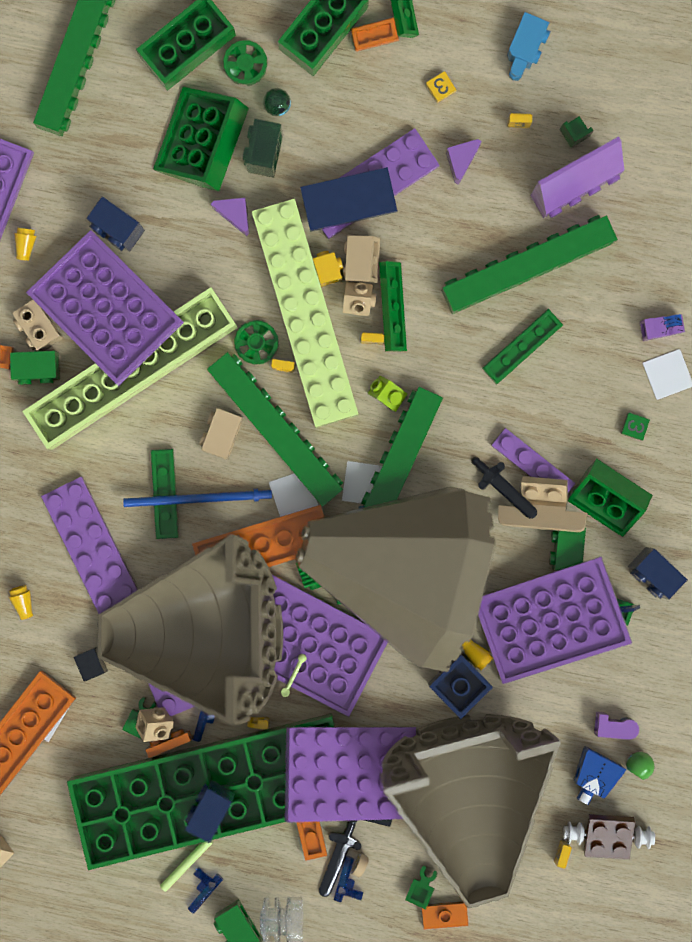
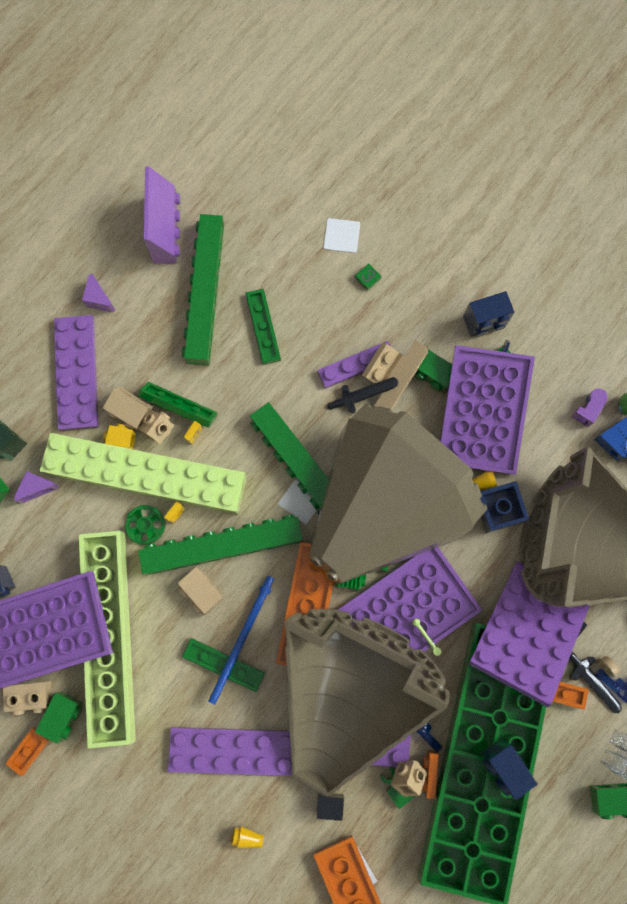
camera: 70 degrees left, 10 degrees down
(181, 869) = (541, 819): yellowish green bar -> none
(204, 888) = (567, 810): clear blue hose -> none
(258, 722) = (452, 686): yellow tile -> none
(291, 495) = (280, 562): white sticker -> none
(349, 199) = (76, 393): dark blue tile -> none
(387, 393) = (241, 443): lime bracket -> none
(441, 87) = (35, 284): yellow tile -> none
(519, 120) = (94, 240): yellow tile -> none
(526, 44) = (42, 208): dark azure hinge -> none
(575, 131) = (126, 207): green panel -> none
(610, 498) = (412, 320): green slope -> none
(661, 327) = (304, 220): medium lavender leg -> none

